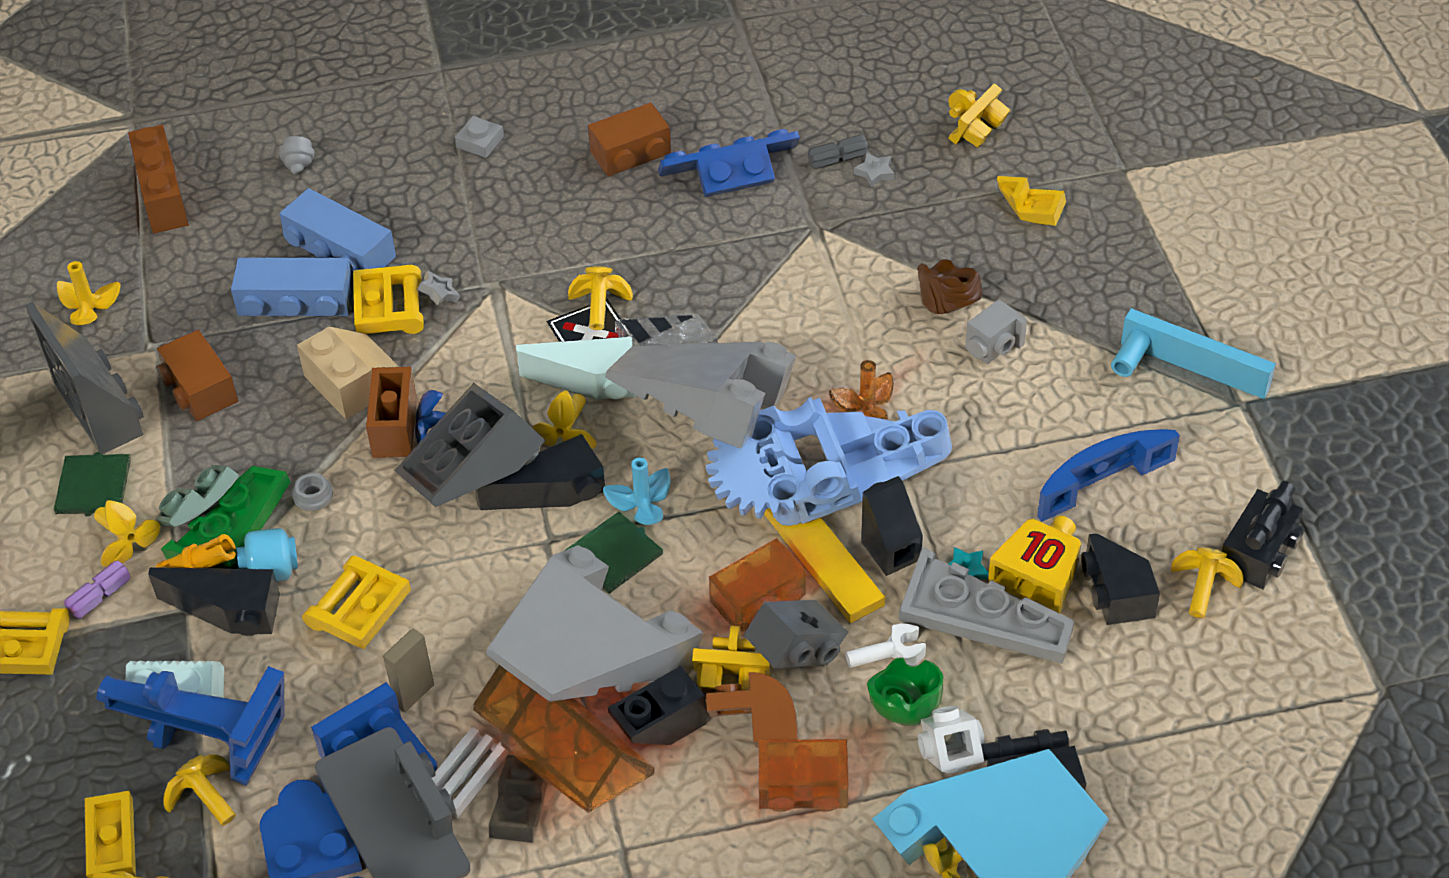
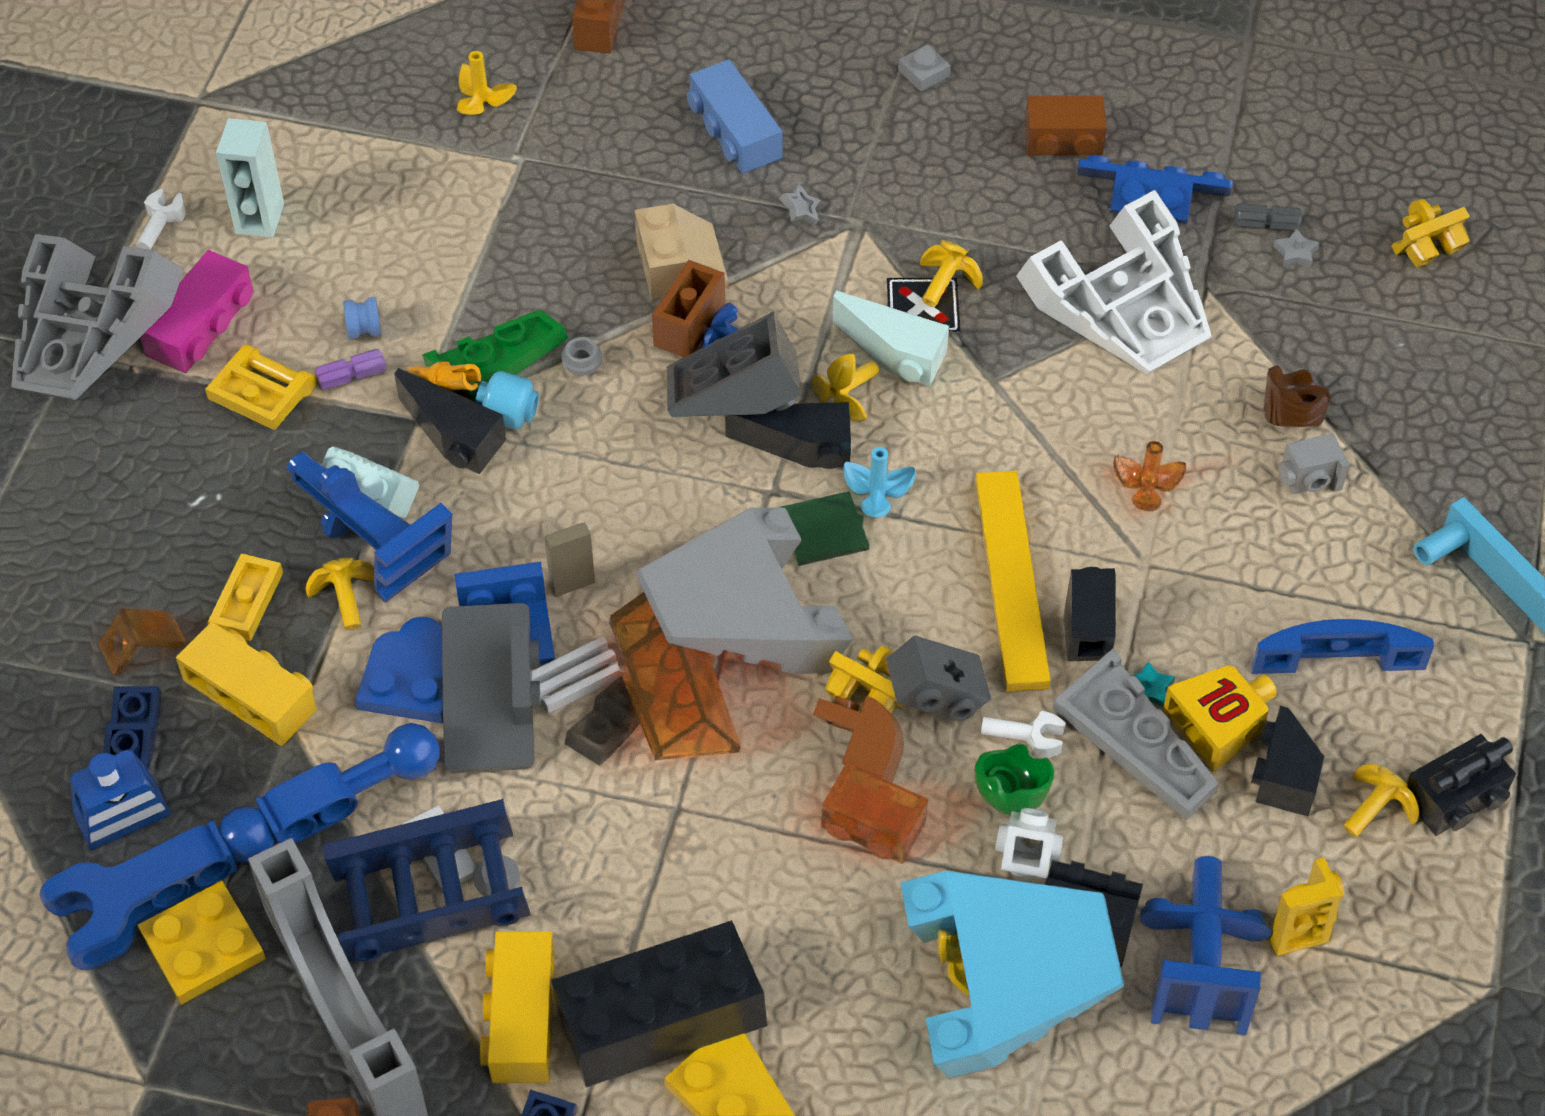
camera: 25 degrees right, 5 degrees up
(85, 539) = (362, 318): none -> medium blue wheel
(86, 383) = (434, 170): dark grey slope -> none
(90, 482) = (398, 269): clear green piece -> none
(121, 522) = (397, 315): yellow plant -> none
(186, 504) = (461, 322): sand green slope -> none
(196, 375) = (537, 203): dark orange brick -> none
(292, 287) = (668, 151): medium blue brick -> none
(296, 153) = (742, 20): light grey plate -> none
(364, 609) = (570, 484): yellow plate -> none
(375, 300) = (736, 193): yellow plate -> none
(661, 710) = (774, 696): black slope -> none
(666, 330) = (988, 343): clear wing -> none
(709, 382) = (985, 397): light grey wedge -> none
(757, 578) = (936, 612): clear orange brick -> none
(770, 259) = (1134, 305): none -> white wedge
(857, 452) = (1005, 502): light blue connector -> none
(1032, 204) = (1437, 349): yellow slope -> none
(1160, 793) = (1202, 985): none -> blue piece
(1212, 690) = (1307, 911): none -> yellow bracket

